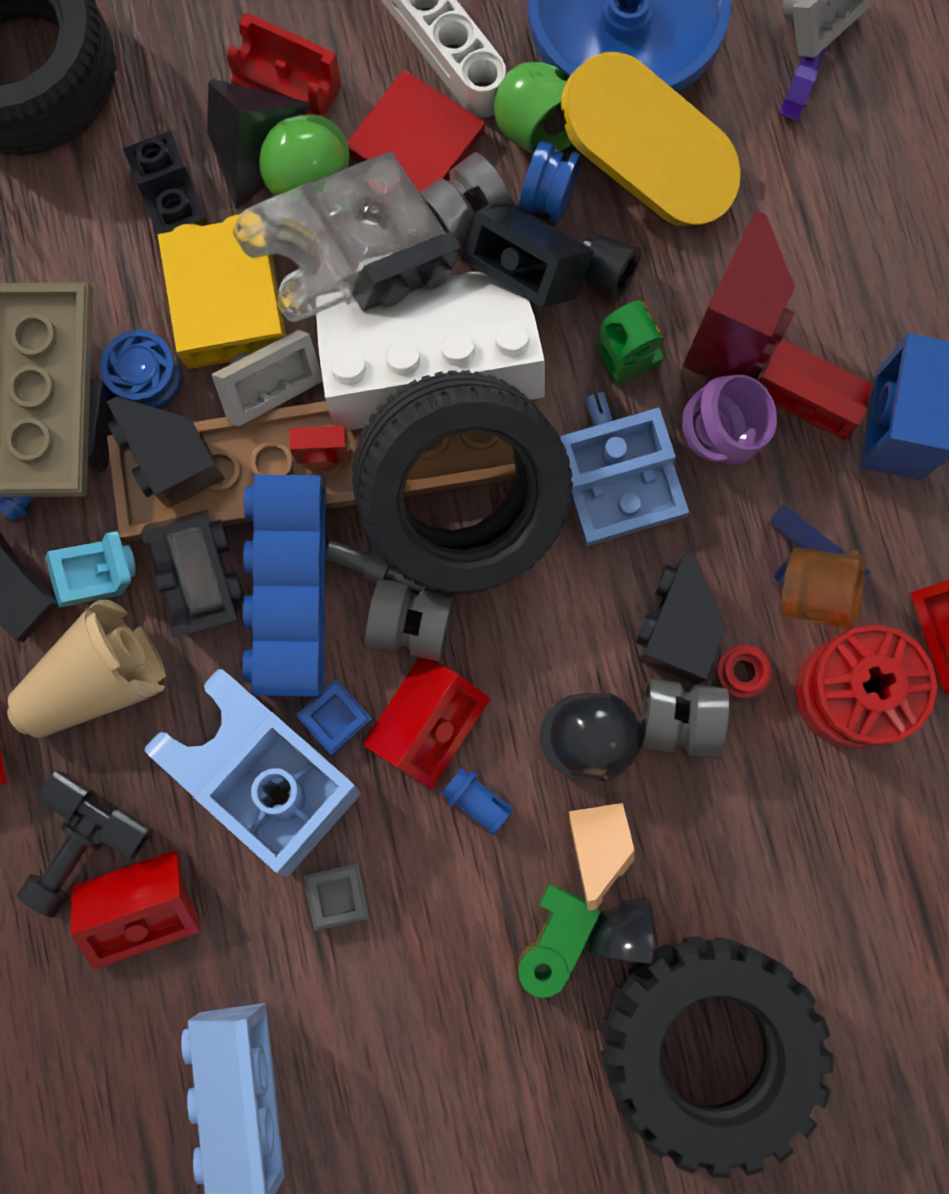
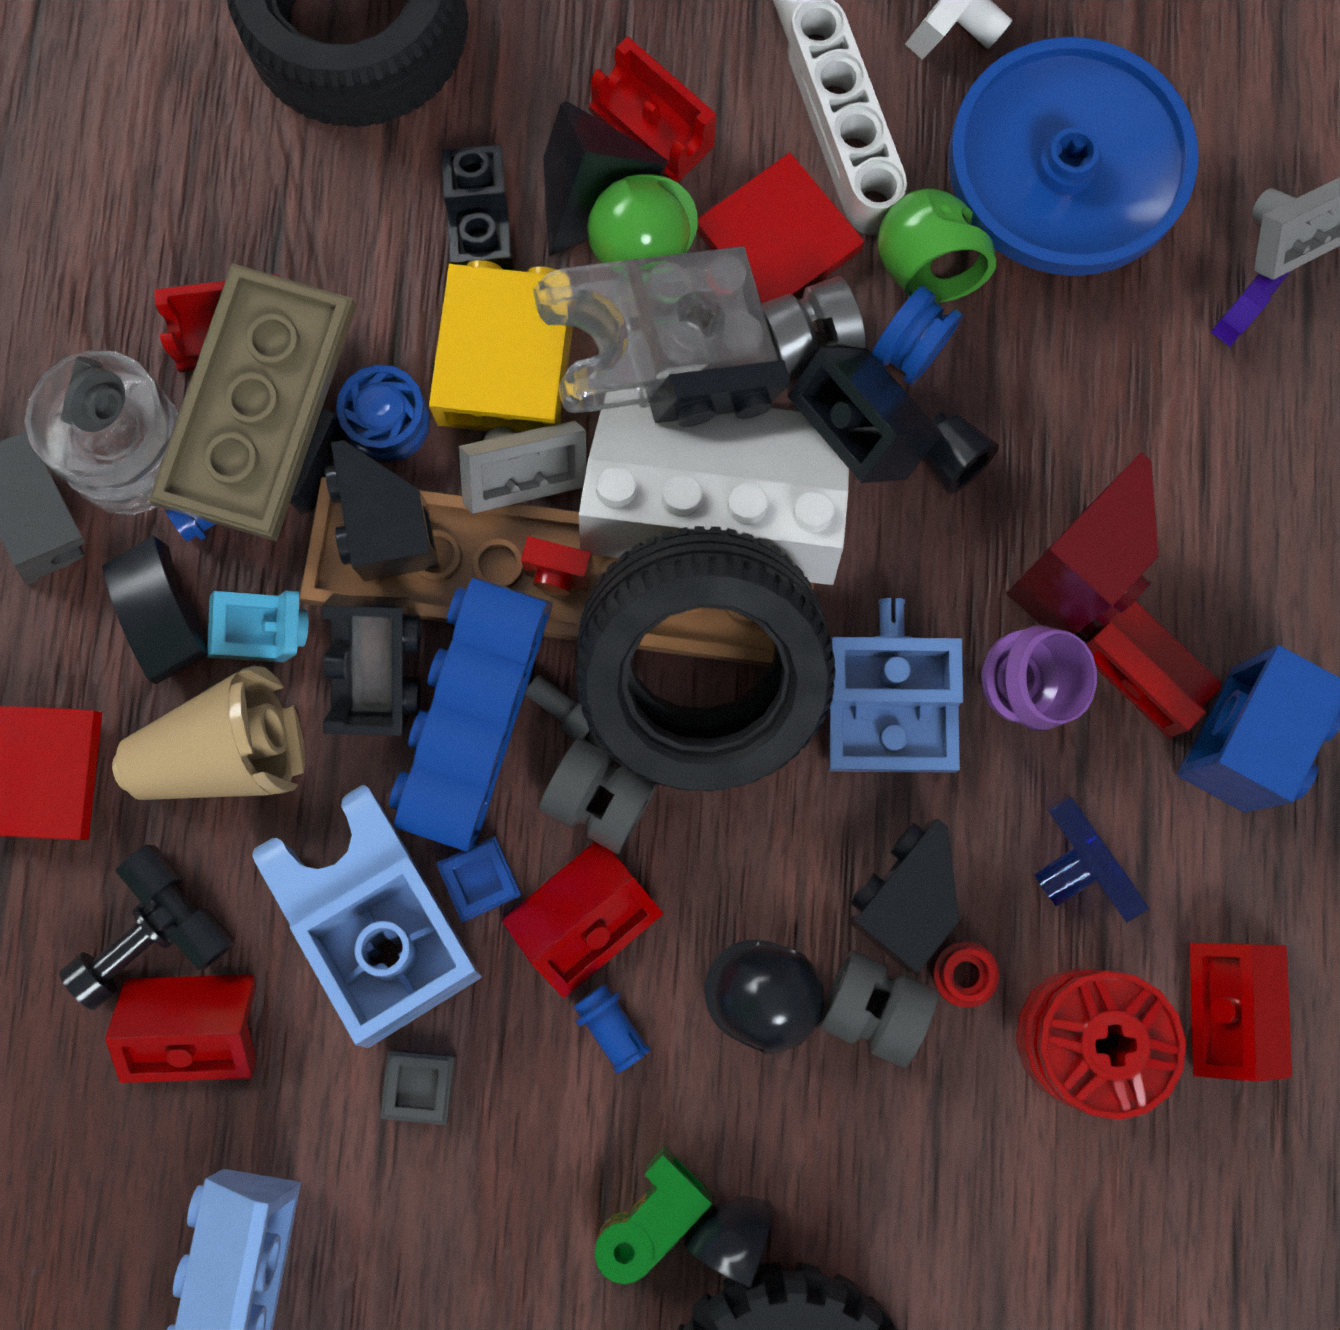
camera: 15 degrees right, 0 degrees up
(601, 848) = (736, 1130): light nougat tile -> none
(629, 342) = (951, 551): green leg -> none
(650, 139) = (1049, 321): yellow tile -> none
(824, 587) = (1087, 910): clear orange piece -> none

